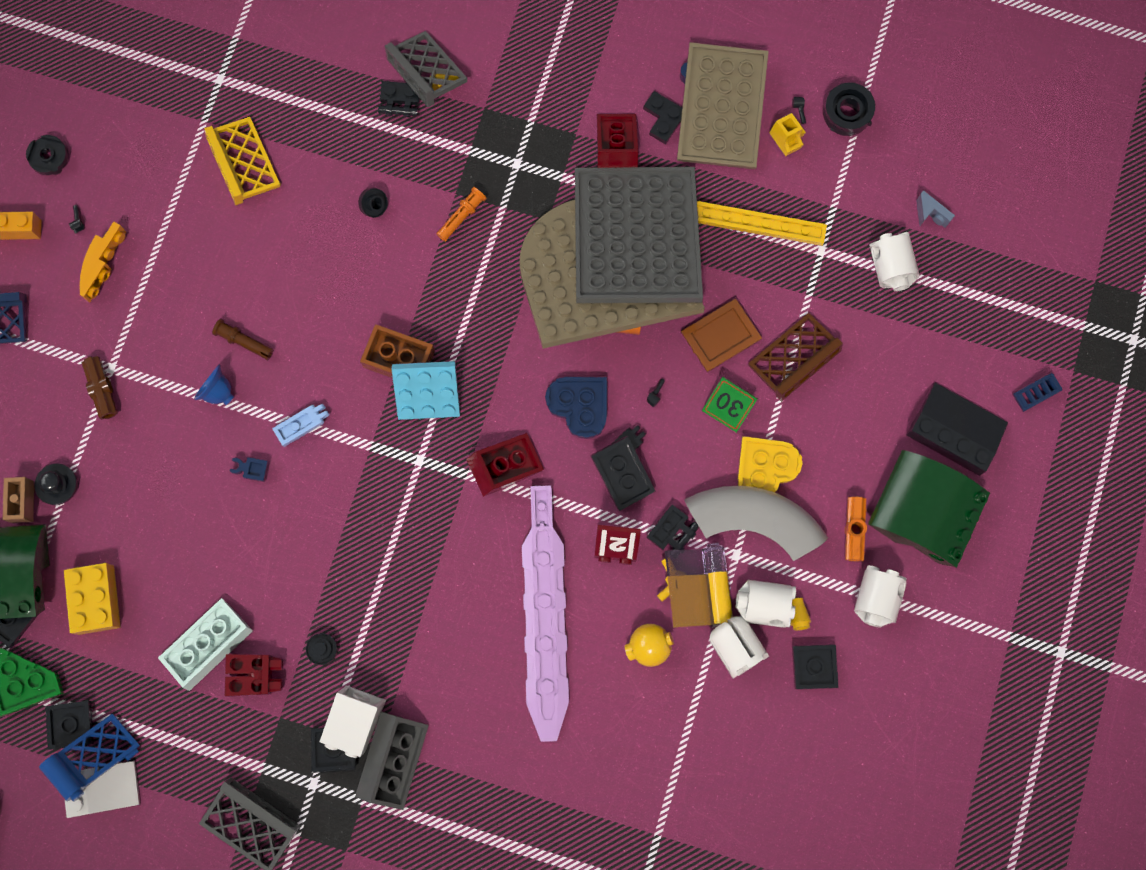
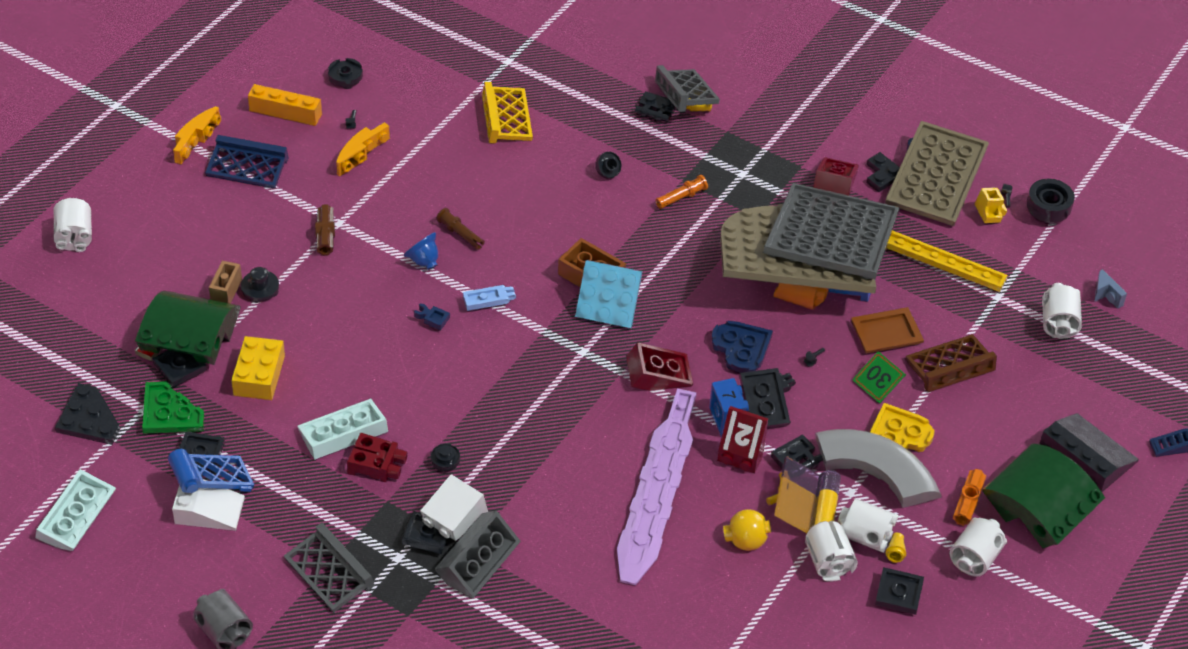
camera: 15 degrees right, 30 degrees down
(590, 499) = (722, 396): none -> blue brick

